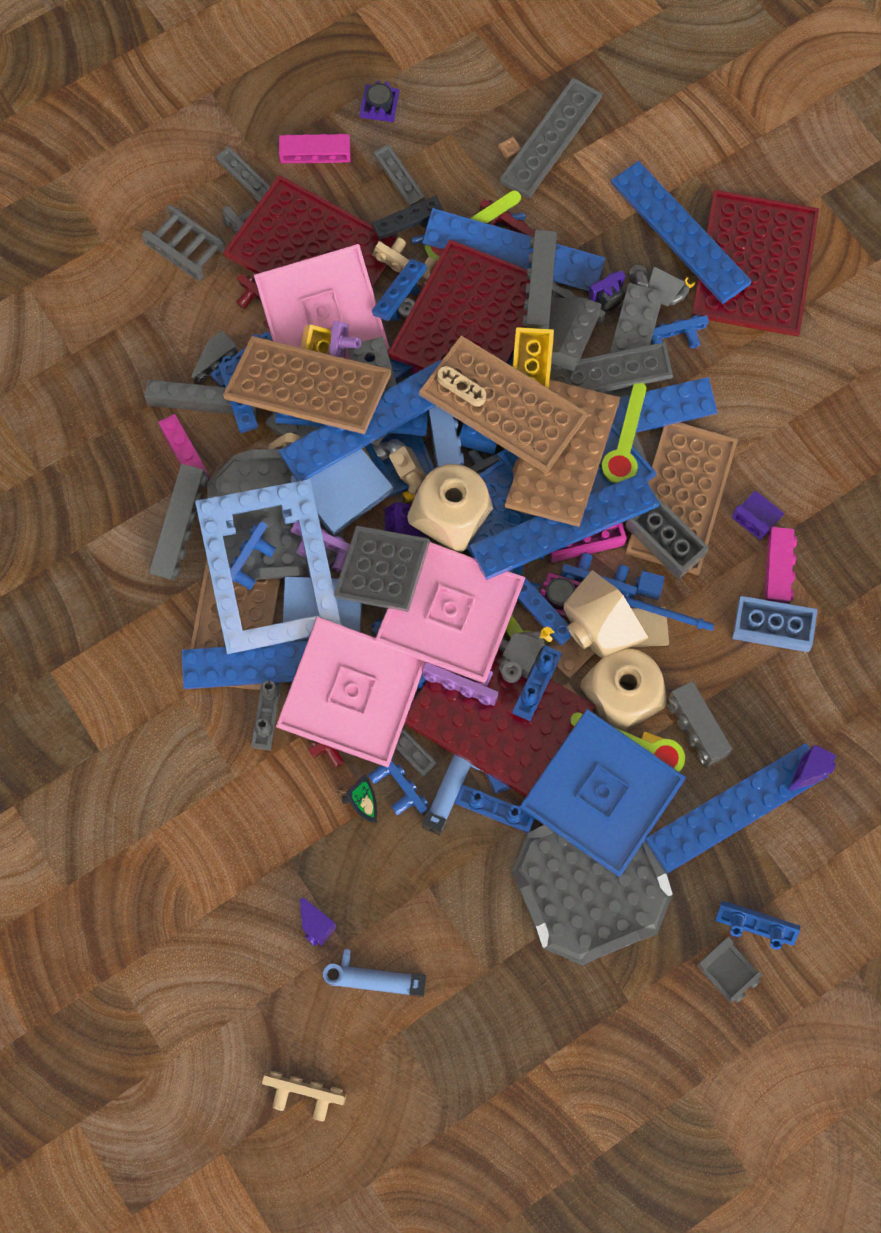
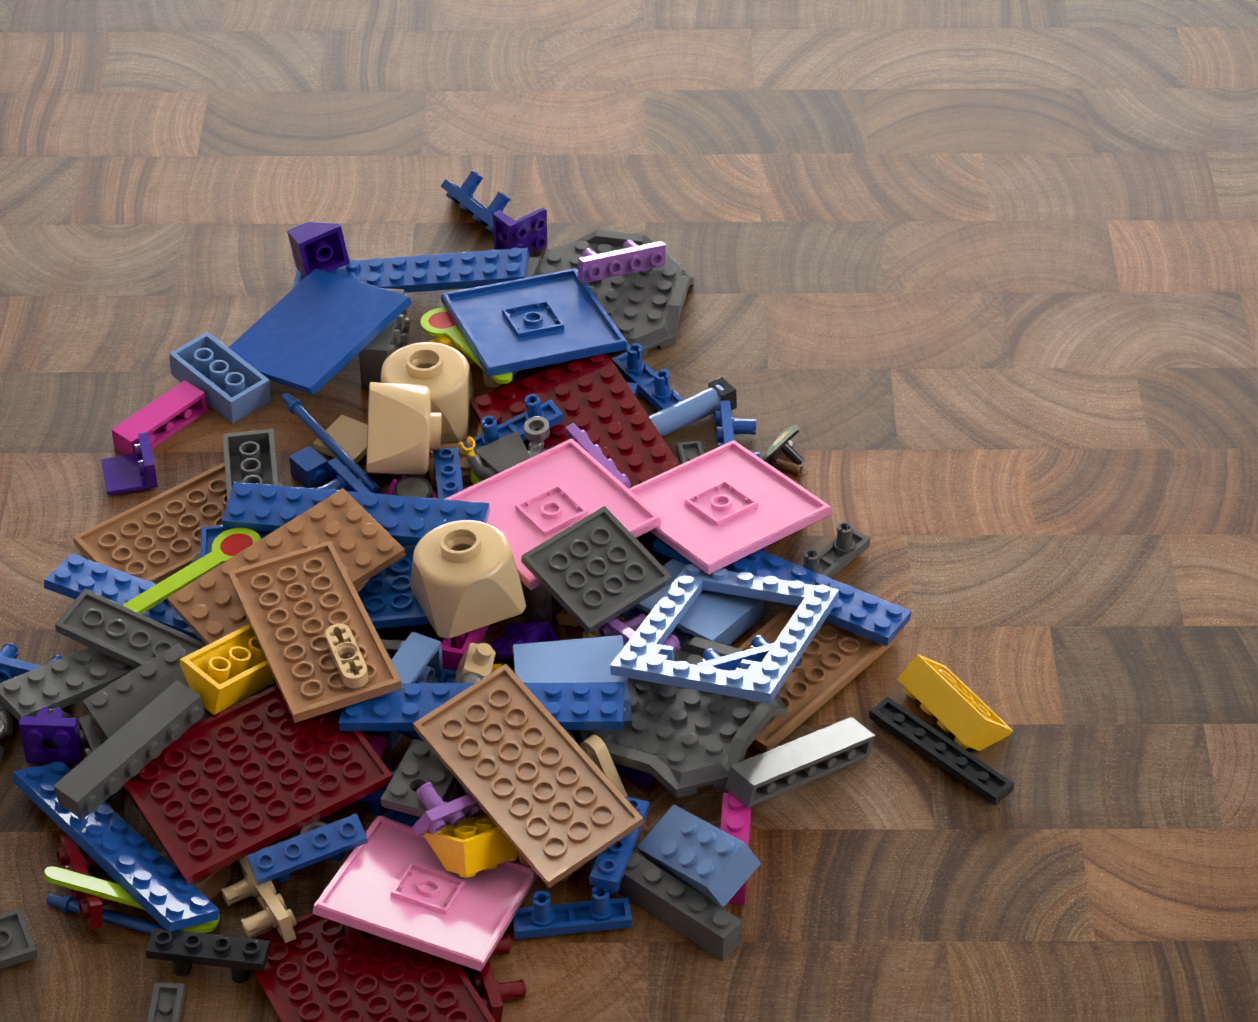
camera: 145 degrees left, 30 degrees down
(110, 597) = (941, 750): none -> black plate
(119, 637) = (952, 704): none -> yellow slope
(191, 416) = (699, 855): none -> medium blue brick
(213, 353) = (607, 941): dark grey slope -> none
(314, 1089) = (1003, 283): tan plate -> none
(315, 924) = (908, 372): dark purple slope -> none
(375, 980) = (915, 341): medium blue piece -> none
(590, 887) = (620, 262): none -> medium lavender plate
(702, 892) = (524, 232): none -> dark purple bracket
(729, 971) = (533, 190): dark grey panel -> none
(742, 691) = (317, 329): none -> blue tile

